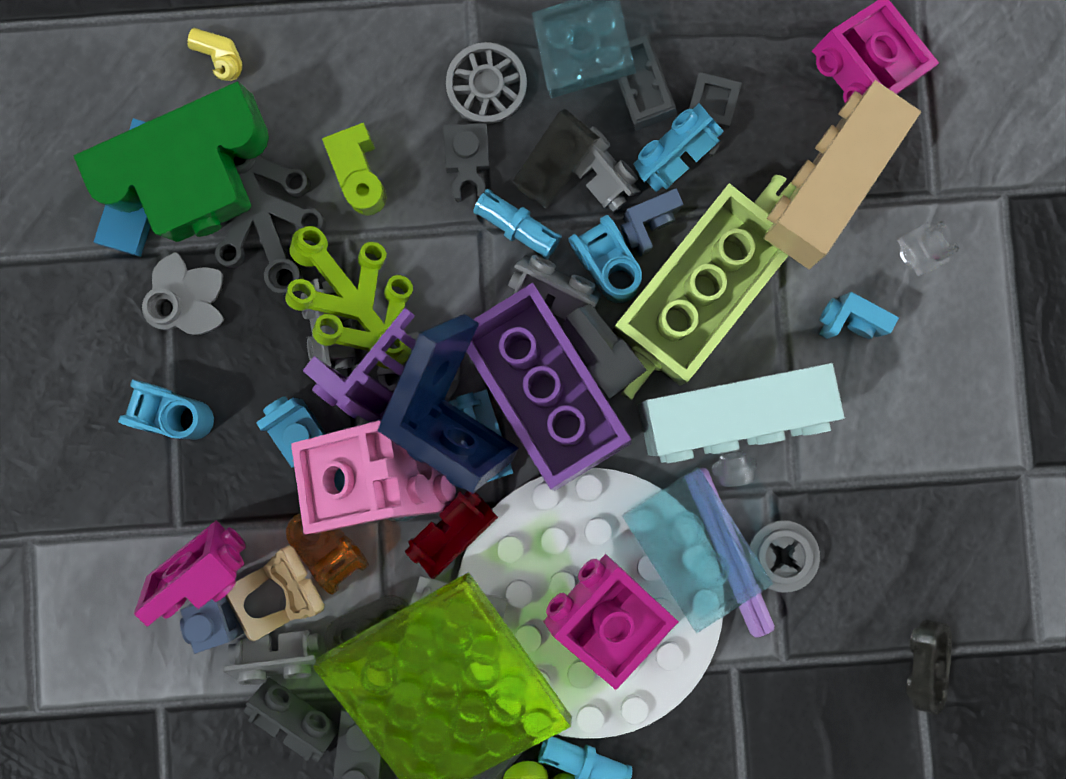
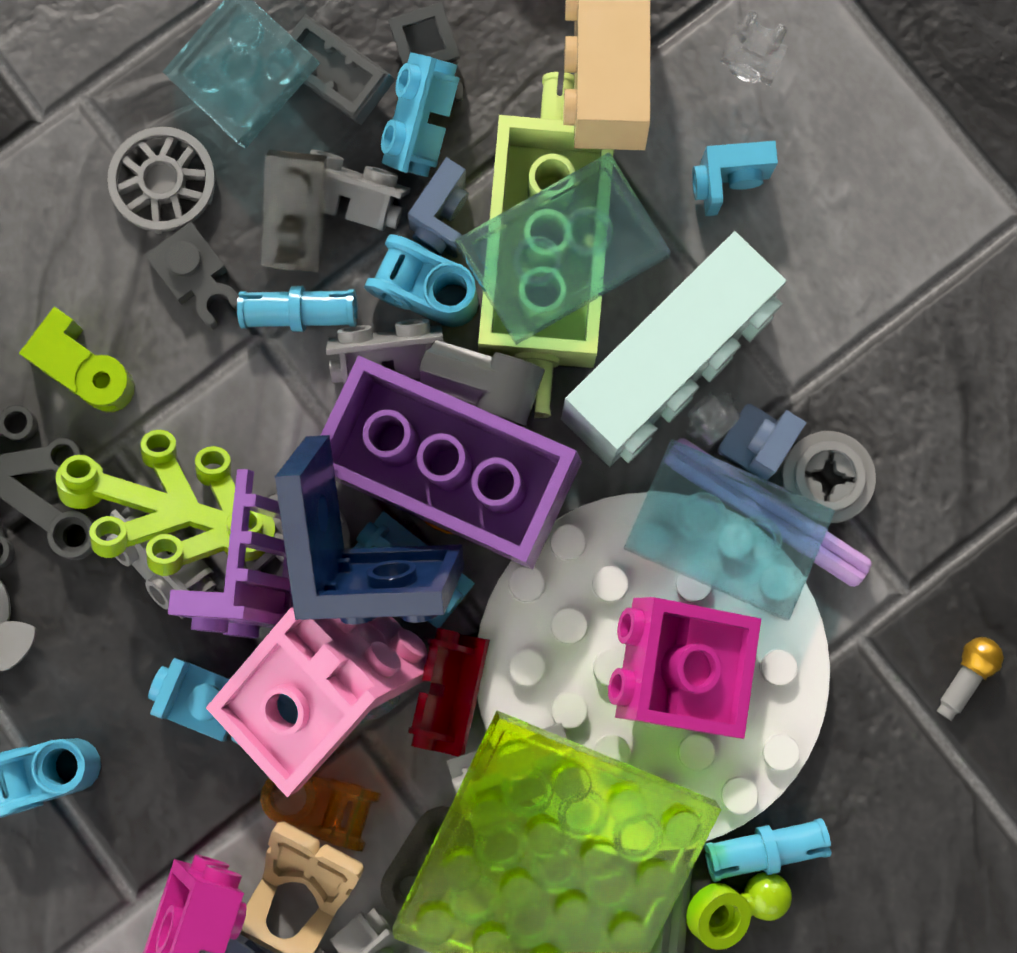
camera: 40 degrees left, 5 degrees down
(712, 299) = (562, 248): none -> clear light blue tile
(756, 506) = (760, 441): none -> sand blue bracket
(801, 737) = (979, 661): none -> piece

